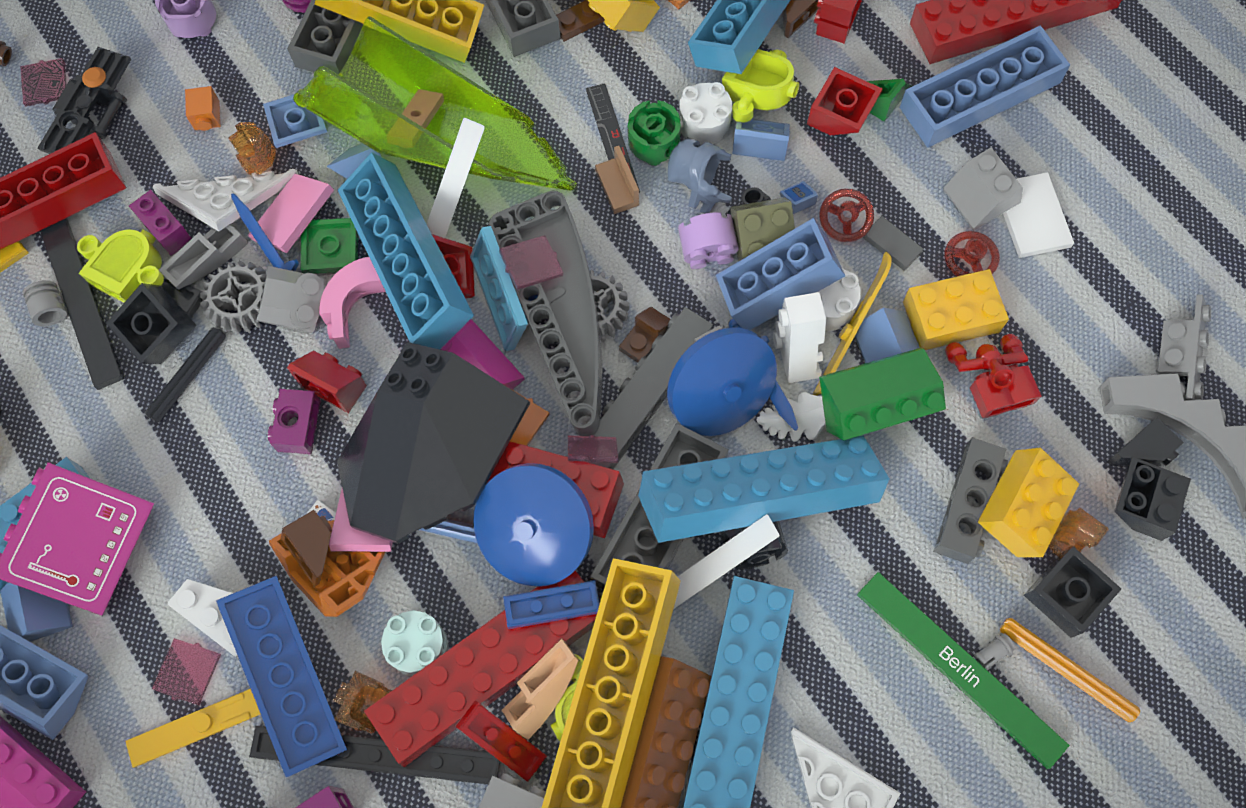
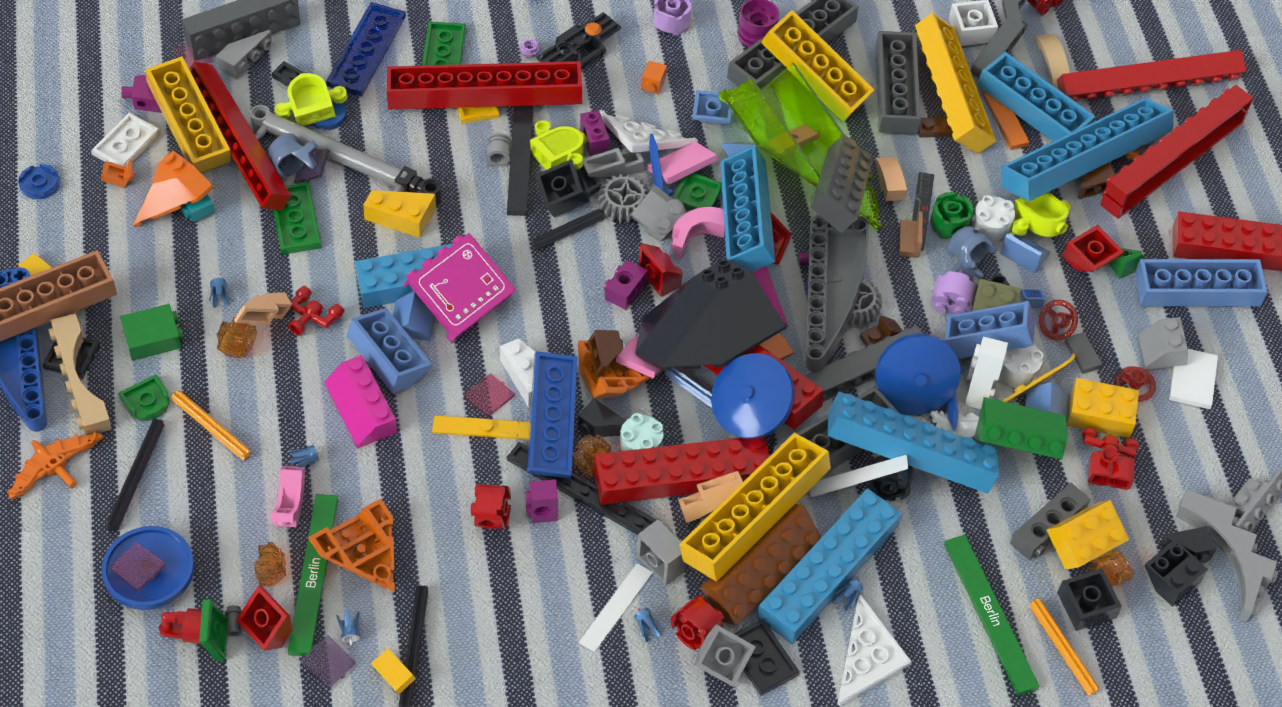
camera: 20 degrees right, 15 degrees down
(25, 137) = (529, 48): none -> lavender plate
(43, 81) = (555, 19): clear pink piece -> none
(253, 148) = (675, 113): clear orange hair -> none
(347, 642) = (600, 419): none -> black slope
(454, 177) = (802, 182): white sticker -> none
(498, 289) = (797, 262): medium azure tile -> none
(501, 741) = (669, 508): red tile -> none
(507, 159) = (842, 183): none -> dark grey brick
(531, 262) = (827, 252): clear pink piece -> none
(551, 604) = (739, 448): blue tile -> none
(557, 114) = (891, 178): none -> light nougat slope
(592, 449) = (812, 374): clear pink piece -> none
(781, 724) = (851, 590): none -> flat silver piece
(995, 651) = (1020, 613): light grey pin -> none

